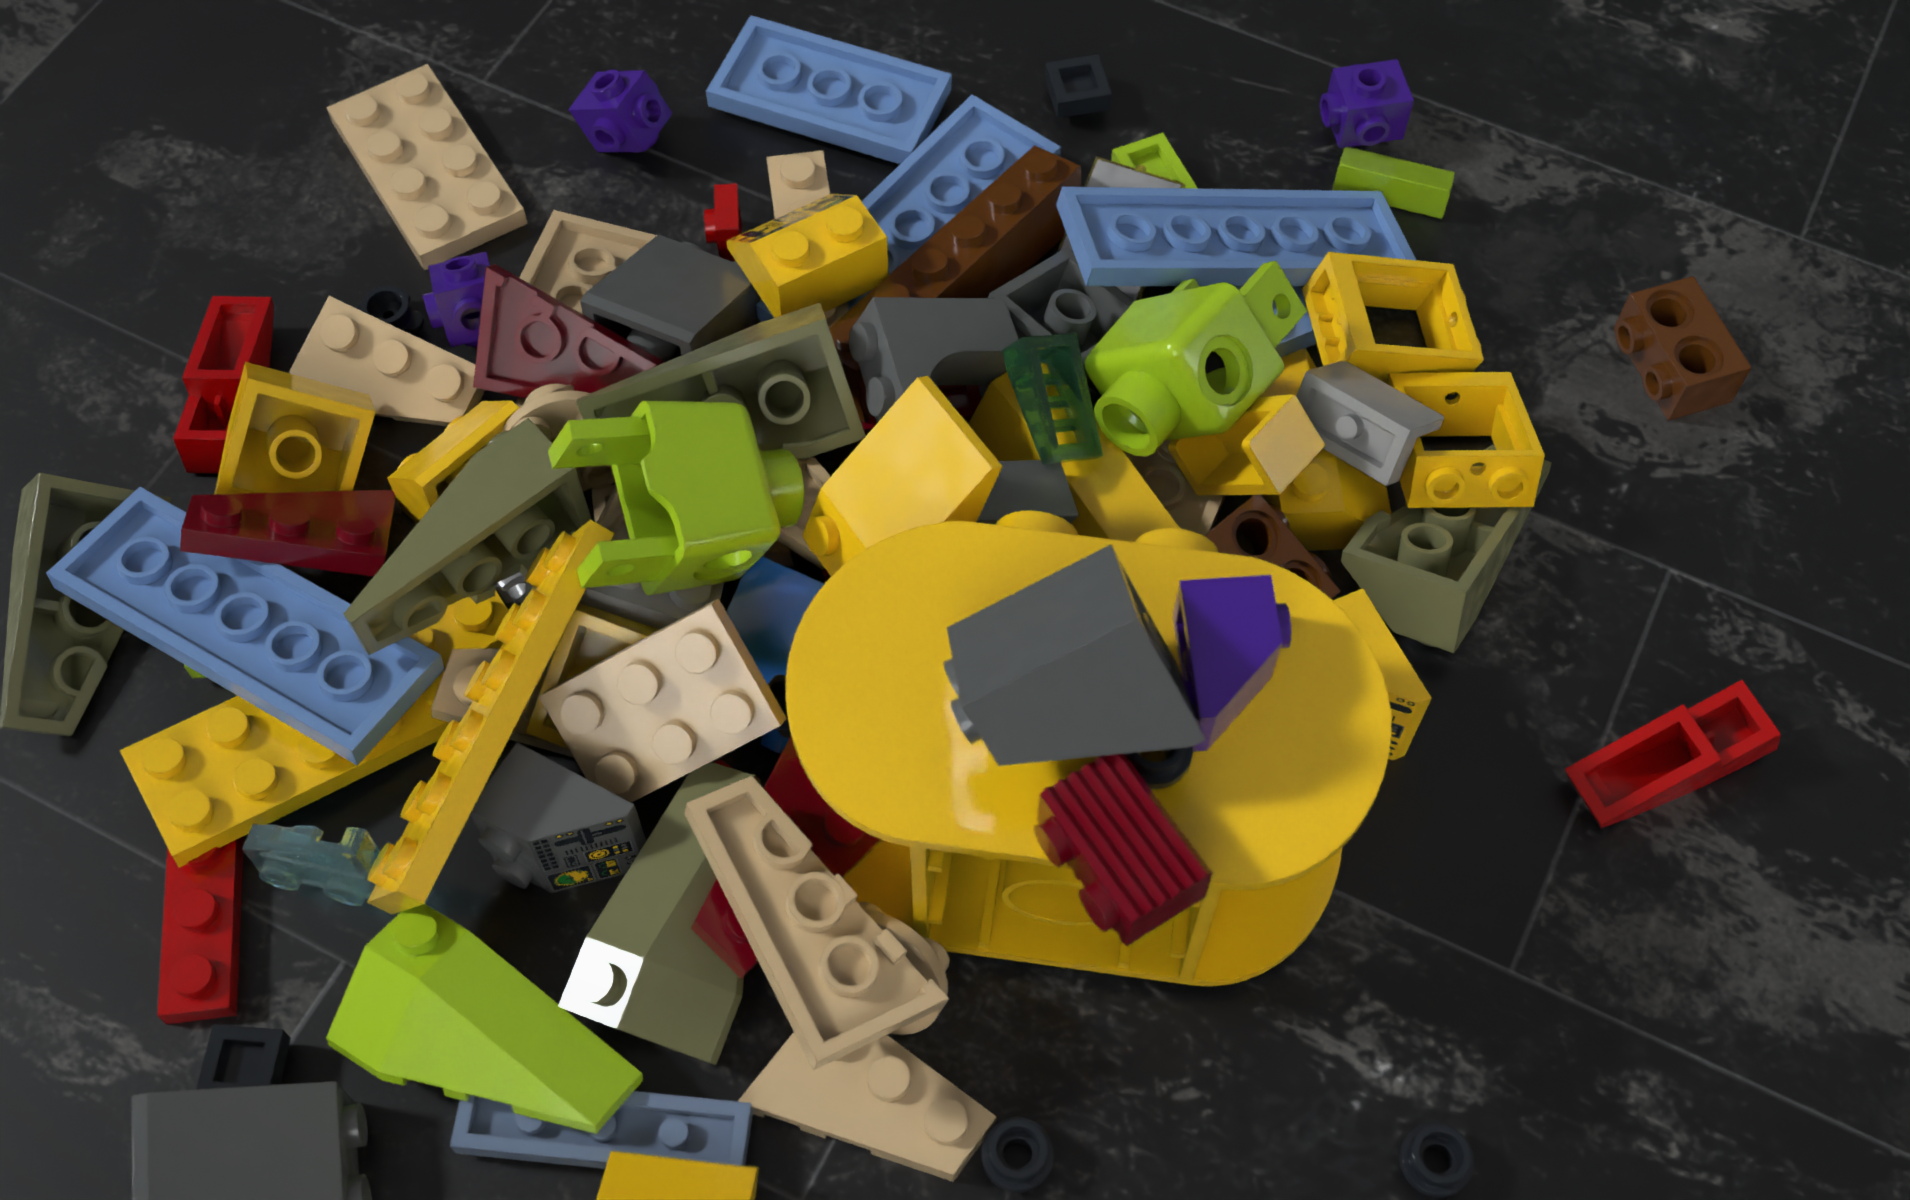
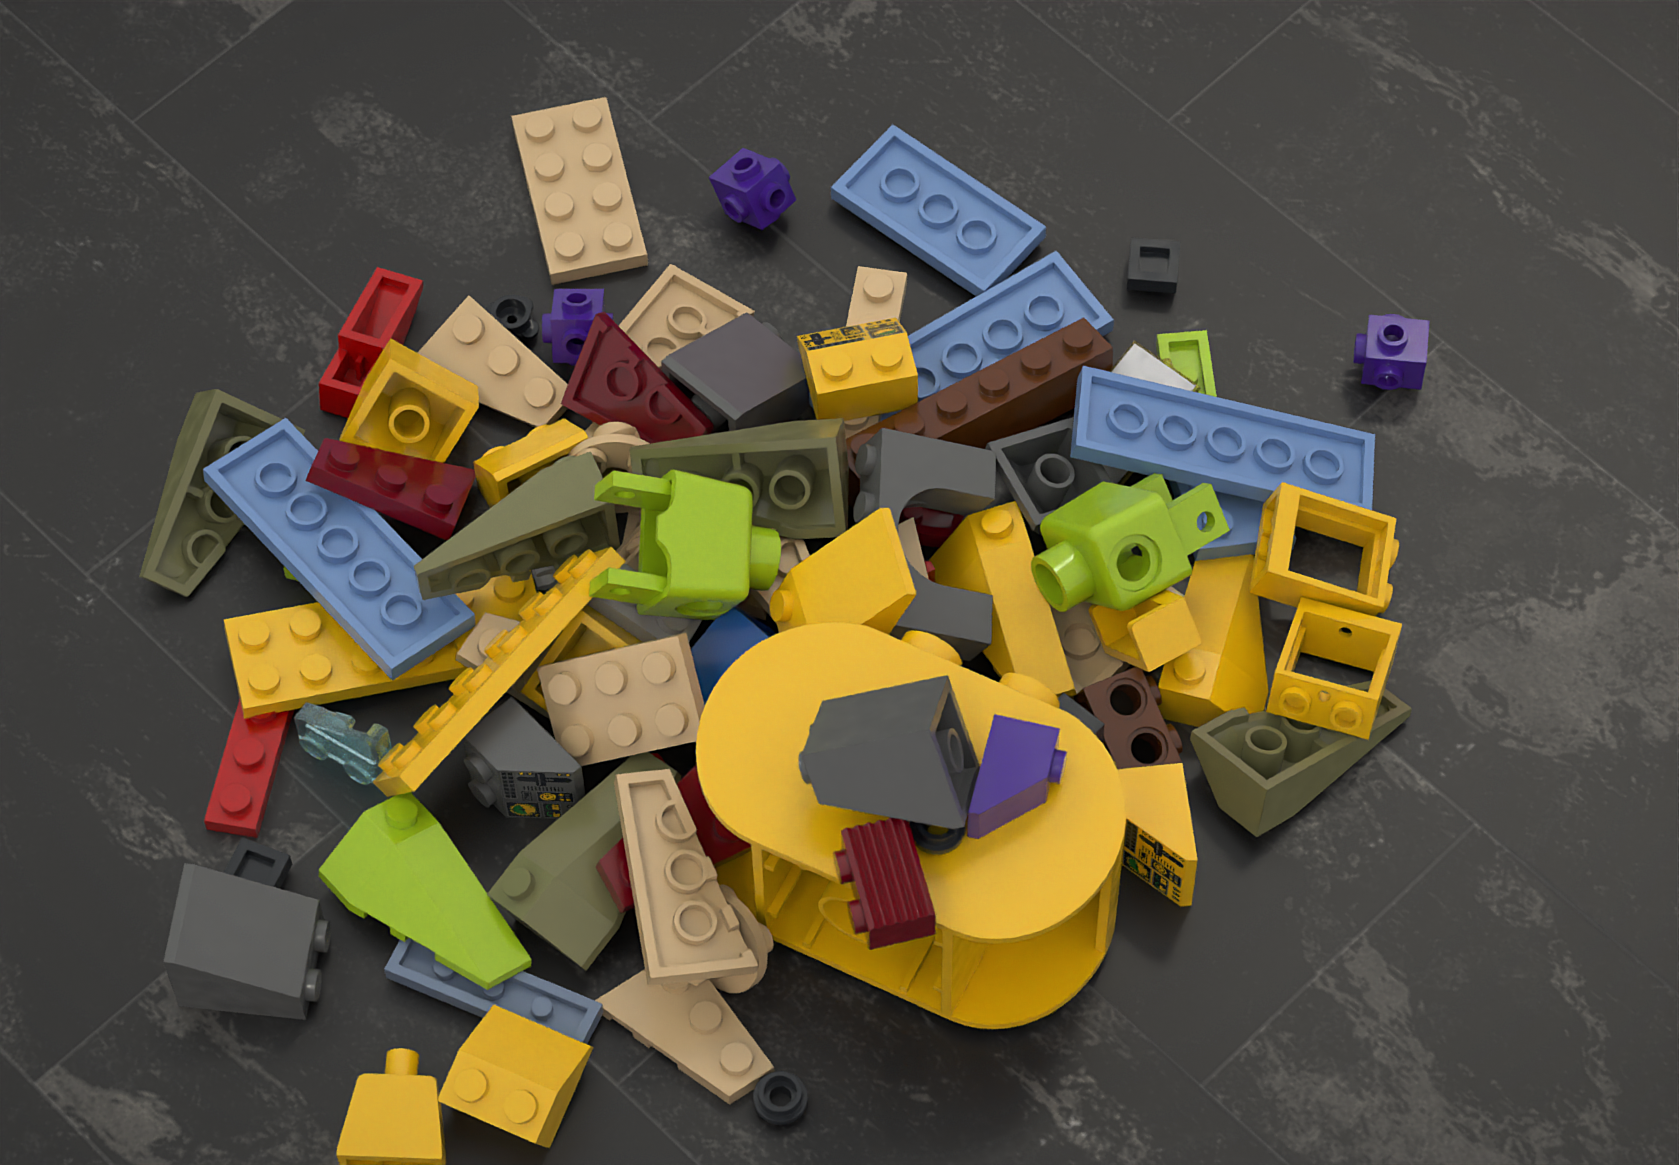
camera: 20 degrees right, 0 degrees up
(725, 219) = (808, 312): red plate -> none
(1067, 374) = (1022, 529): clear green slope -> none
(1365, 419) = (1249, 628): light grey panel -> none
(1402, 182) = (1395, 426): lime slope -> none
(1674, 755) = (1396, 965): red slope -> none
(1680, 348) = (1571, 643): reddish brown brick -> none

